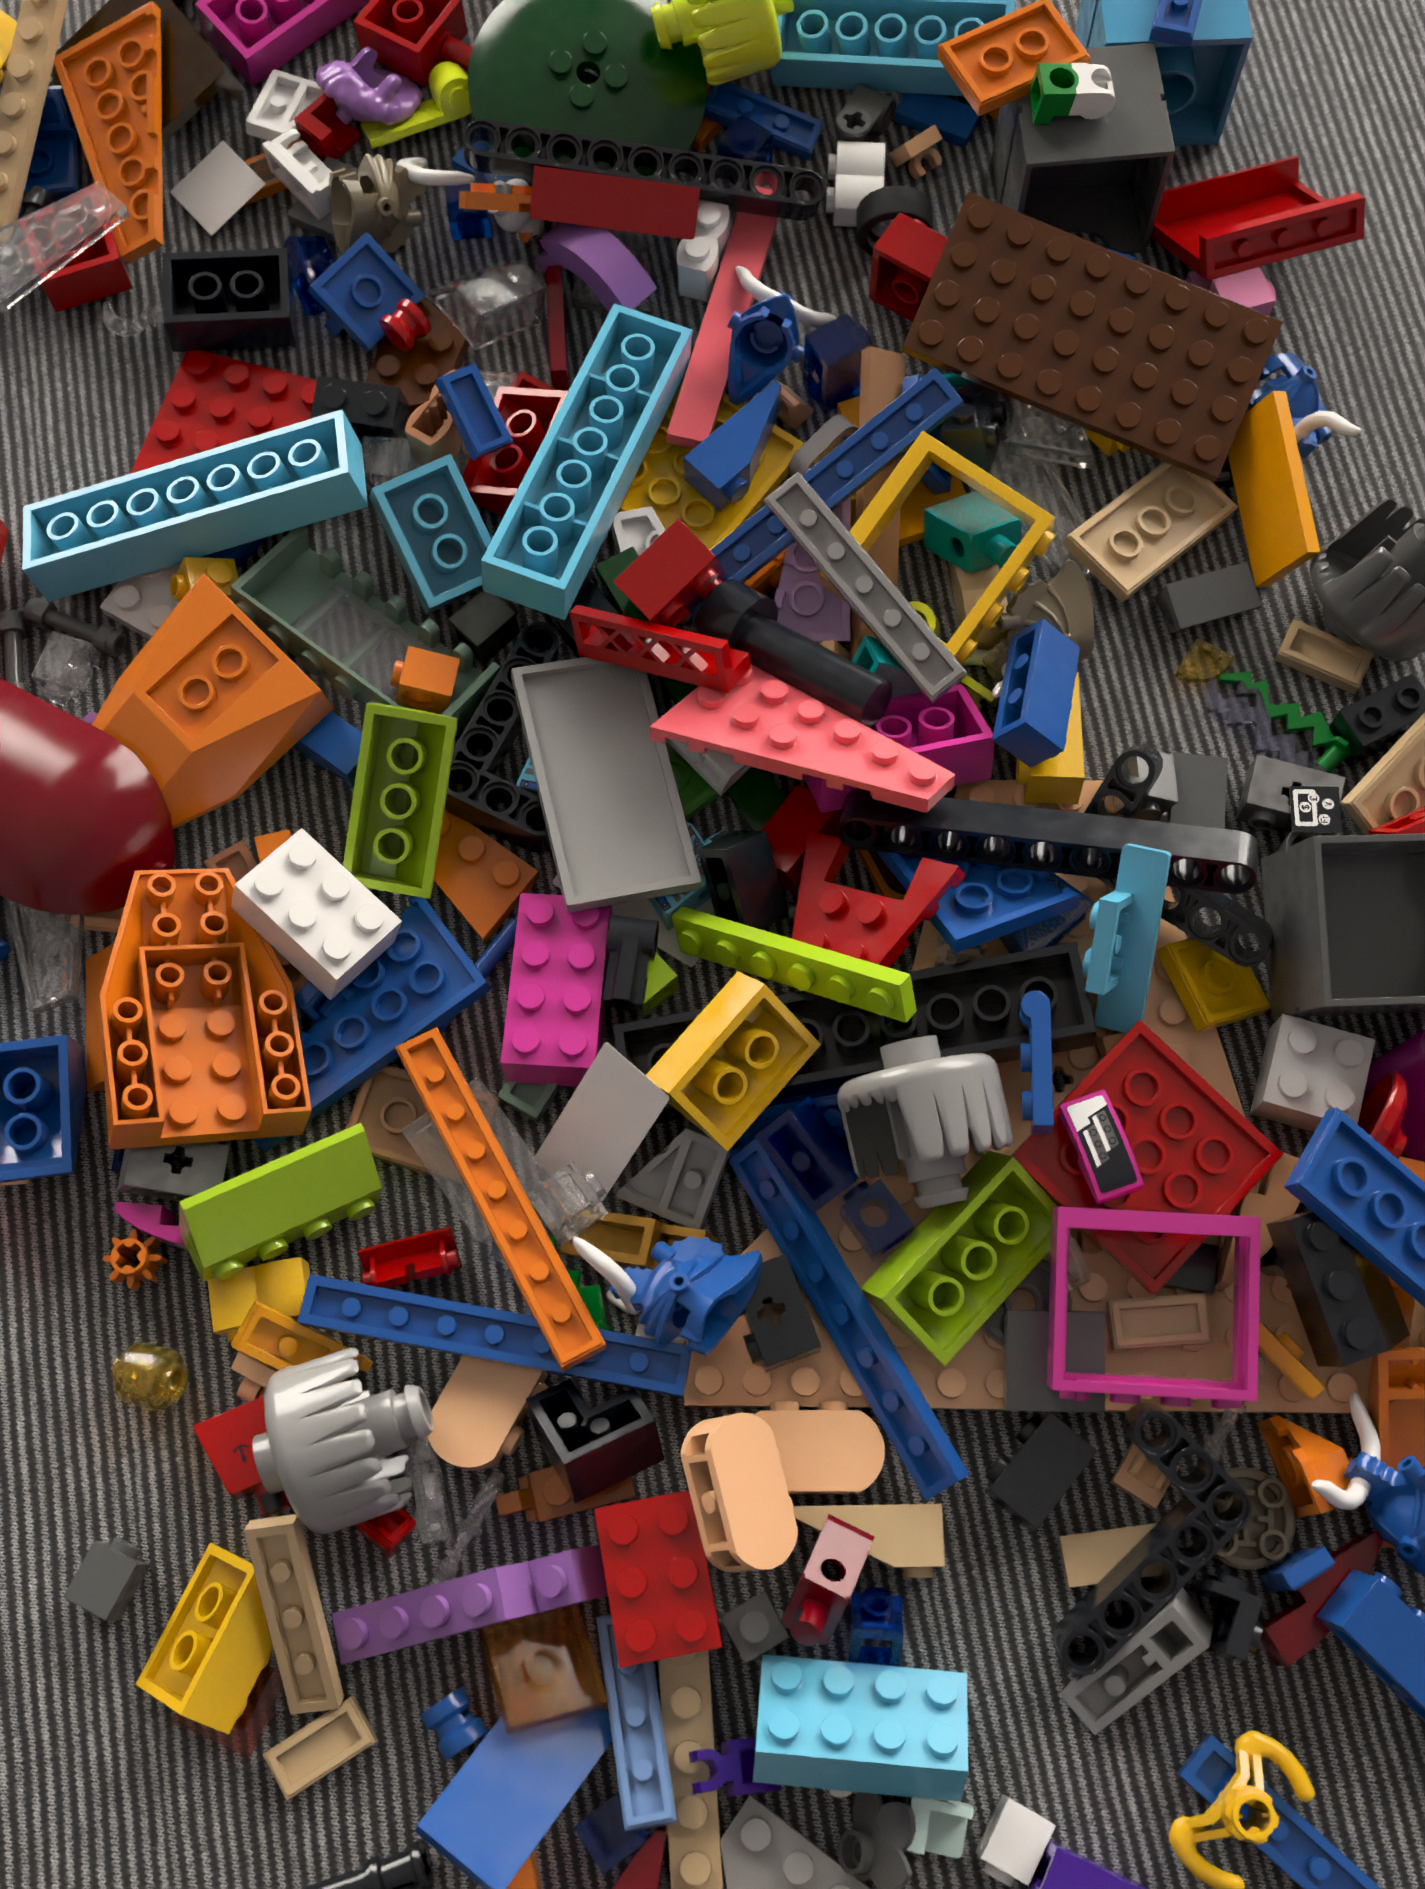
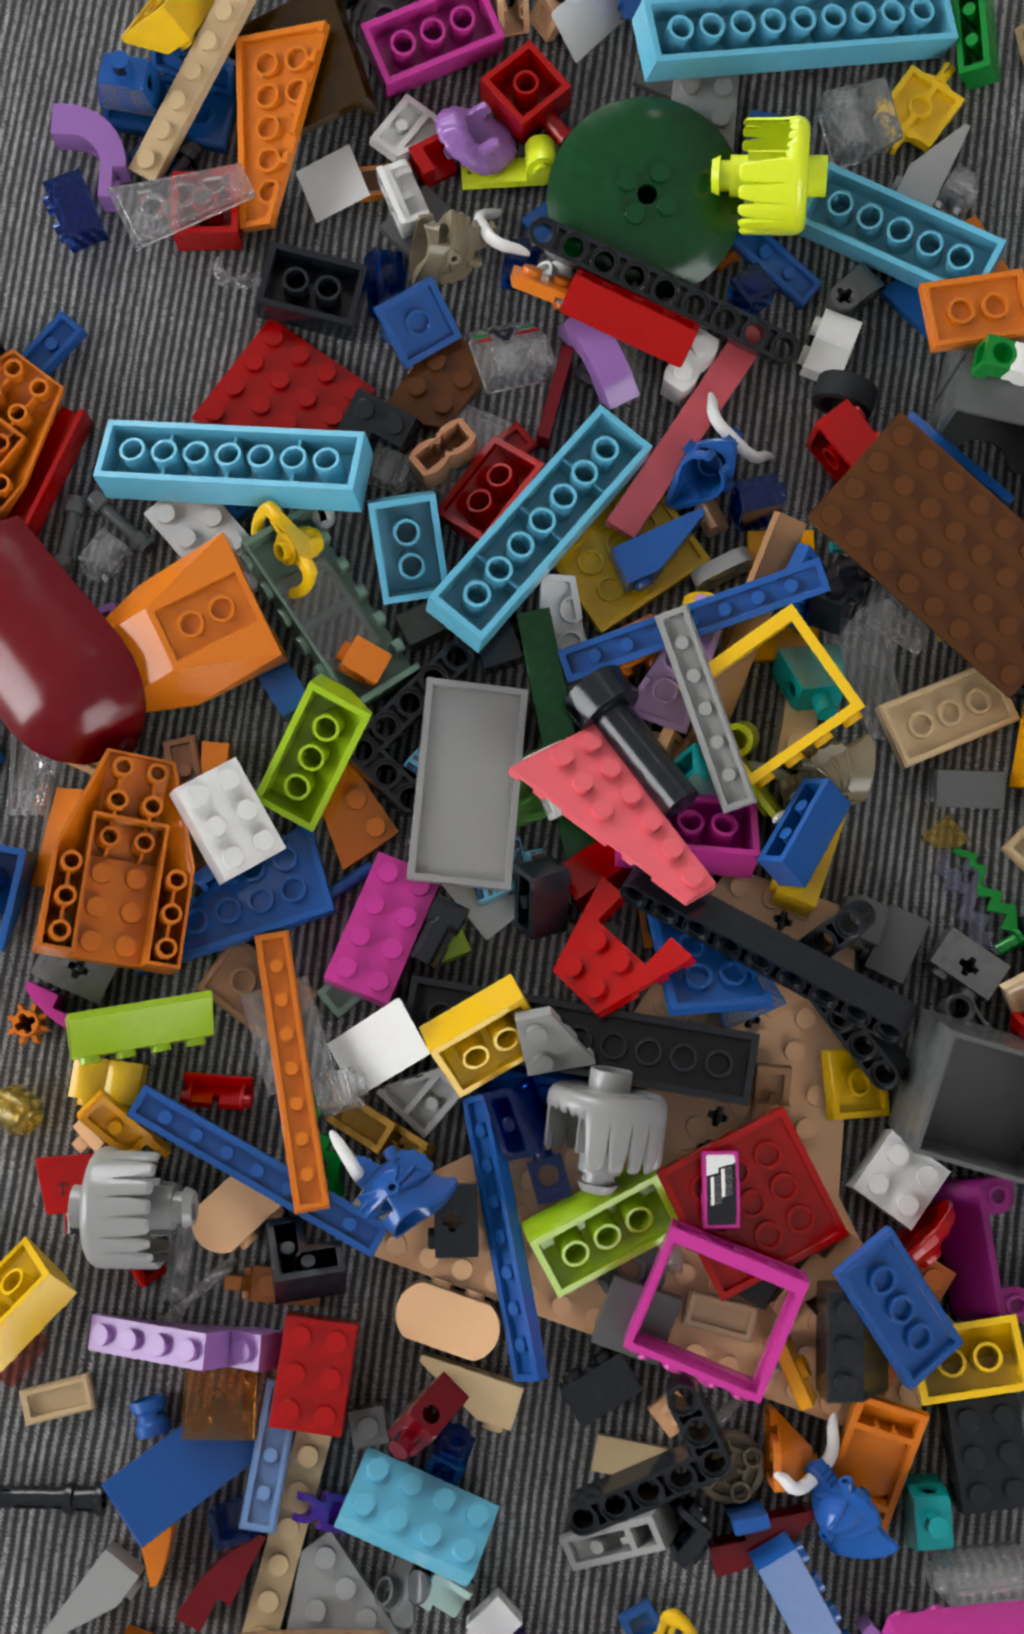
camera: 15 degrees right, 10 degrees up
(218, 570) = (230, 521): yellow bracket -> none
(293, 572) = (291, 544): none -> yellow piece
(294, 1614) = (65, 1311): tan plate -> none
(328, 535) = (331, 517): none -> white hinge
(405, 325) = (438, 361): red wheel -> none
(473, 411) = (465, 459): blue tile -> none
(658, 649) = (538, 704): red fence -> none
(671, 576) = (564, 653): red brick -> none
(739, 1493) = (386, 1339): light nougat brick -> none
(796, 964) = (554, 978): lime plate -> none
(816, 1036) = (549, 1043): none -> light grey wing
(919, 148) = (885, 331): light nougat tile -> none
(1037, 1059) = (697, 1115): blue plate -> none
(1126, 938) = (795, 1046): medium azure bracket -> none
(1315, 809) = (978, 984): black sticker -> none

